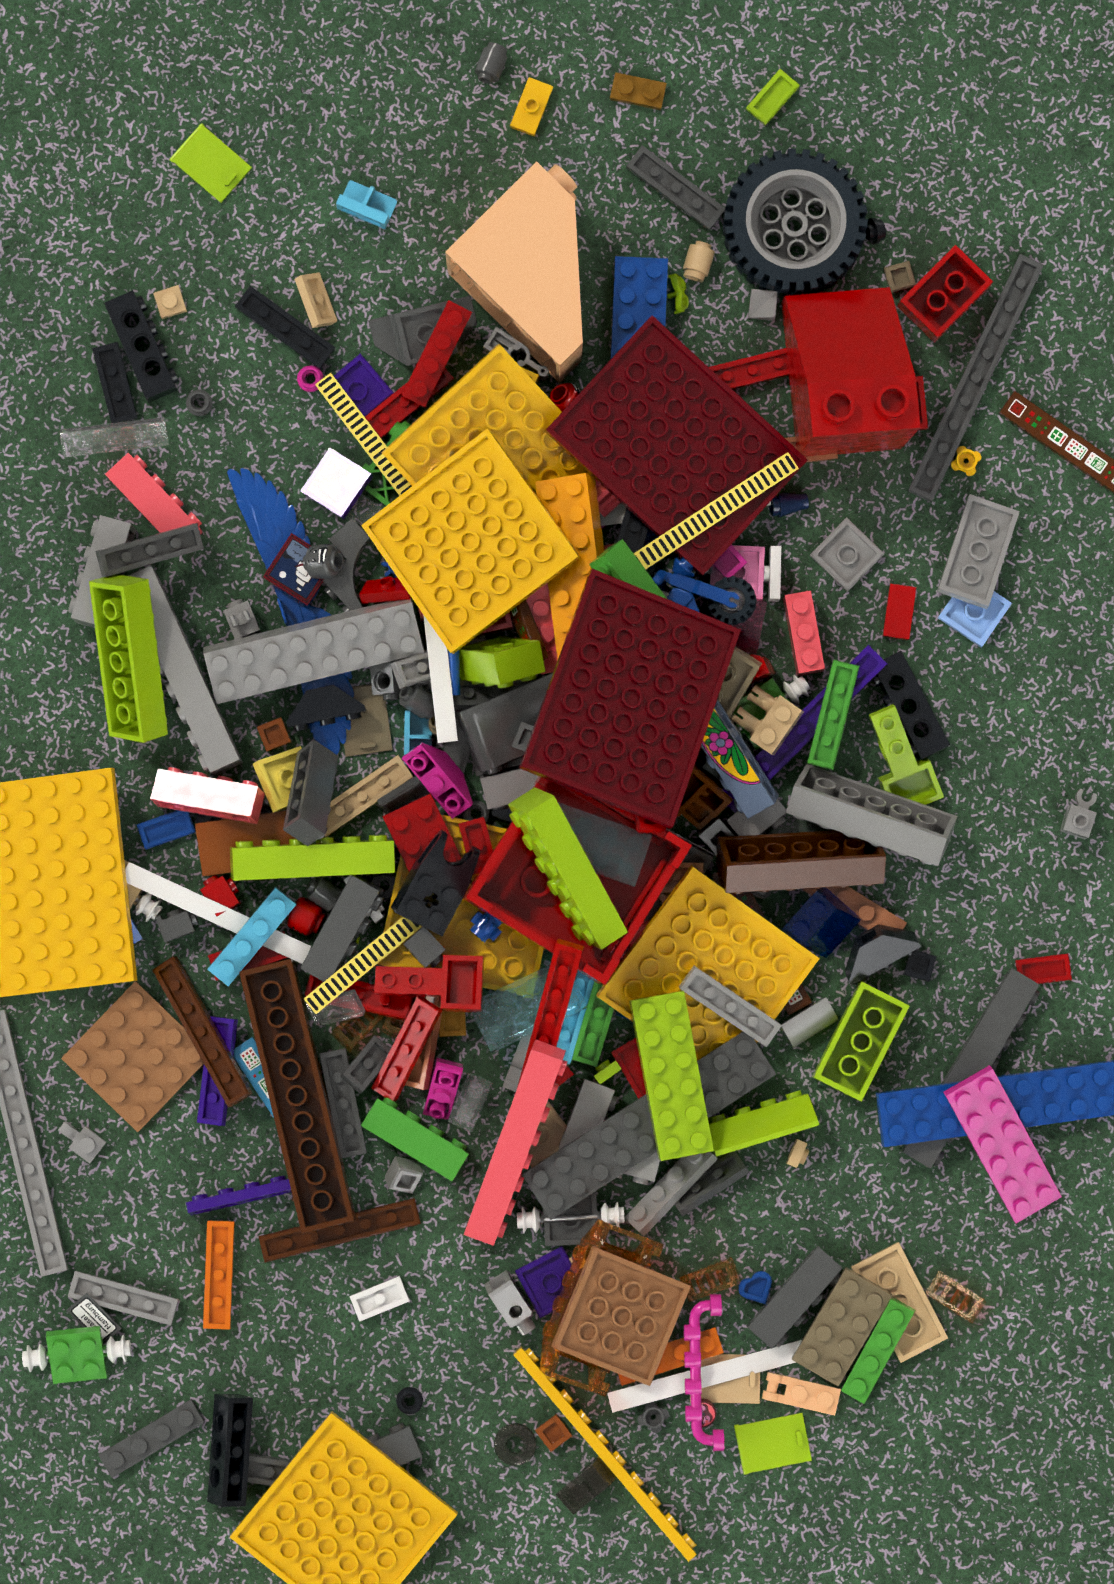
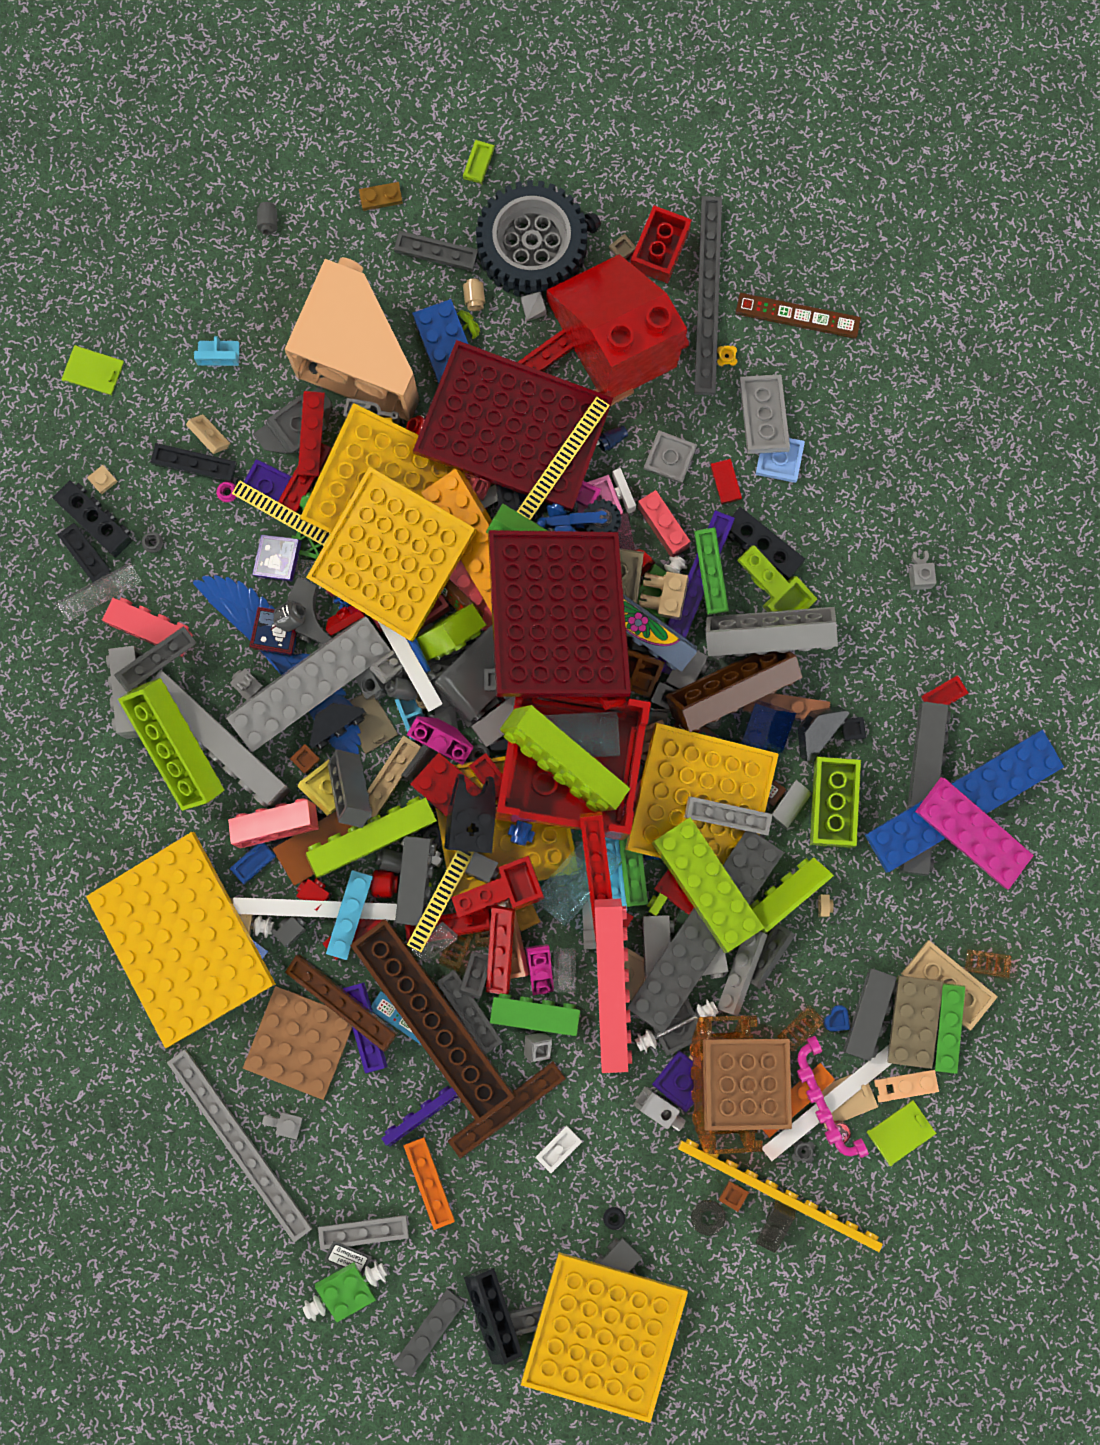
camera: 15 degrees left, 5 degrees down
(531, 106) = (308, 237): yellow plate -> none

